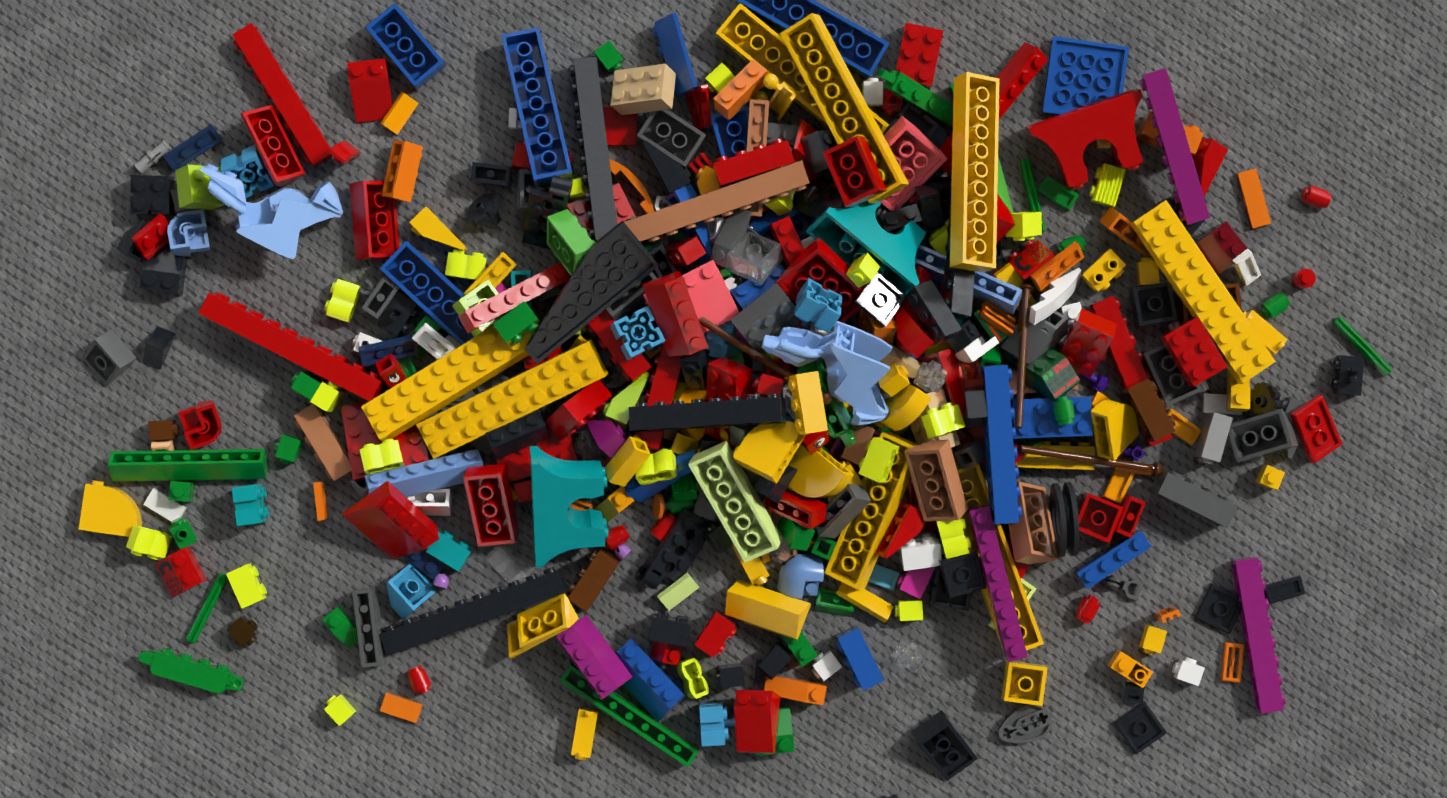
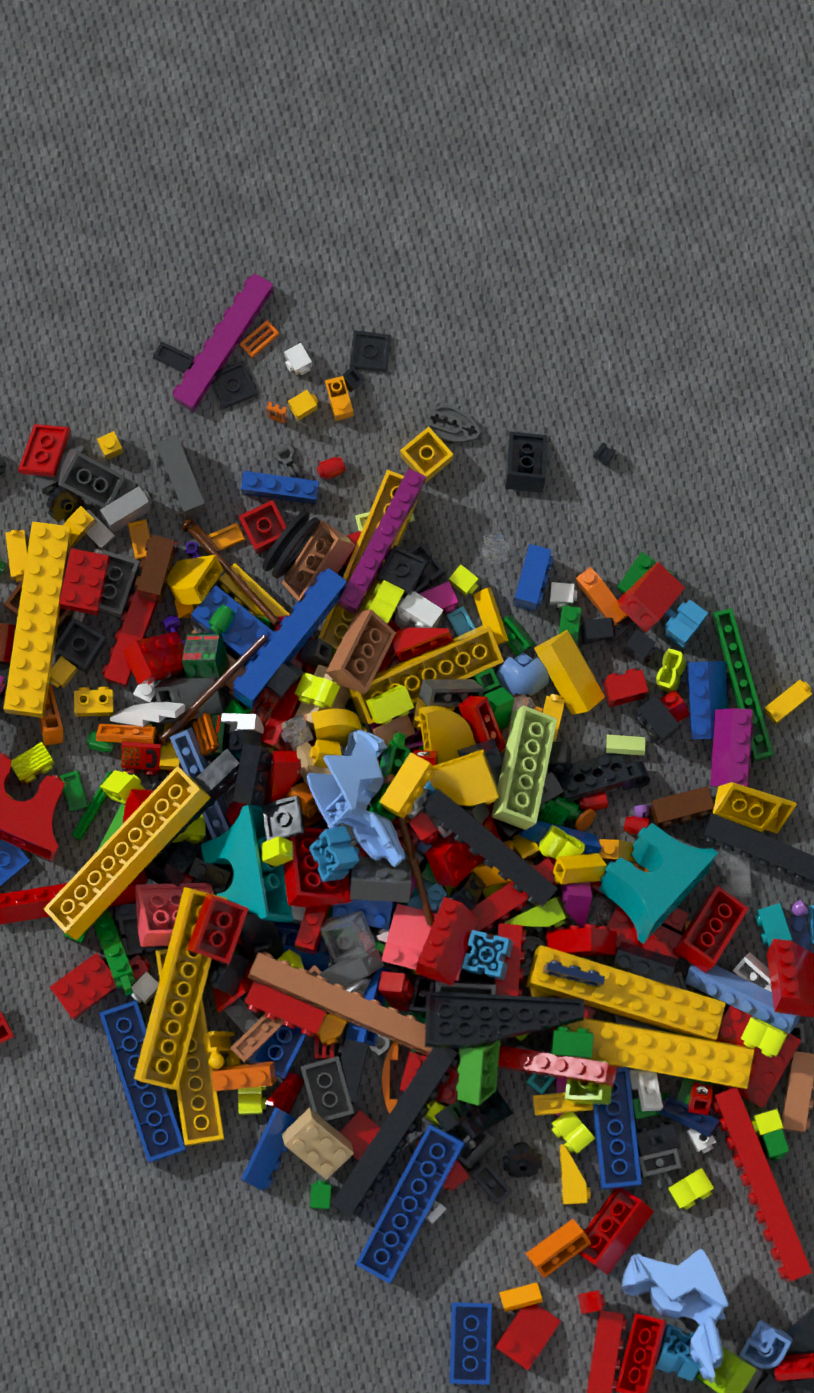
camera: 140 degrees left, 10 degrees down
(561, 375) = (573, 973): none -> dark blue plate
(1129, 515) = (232, 510): red brick -> none

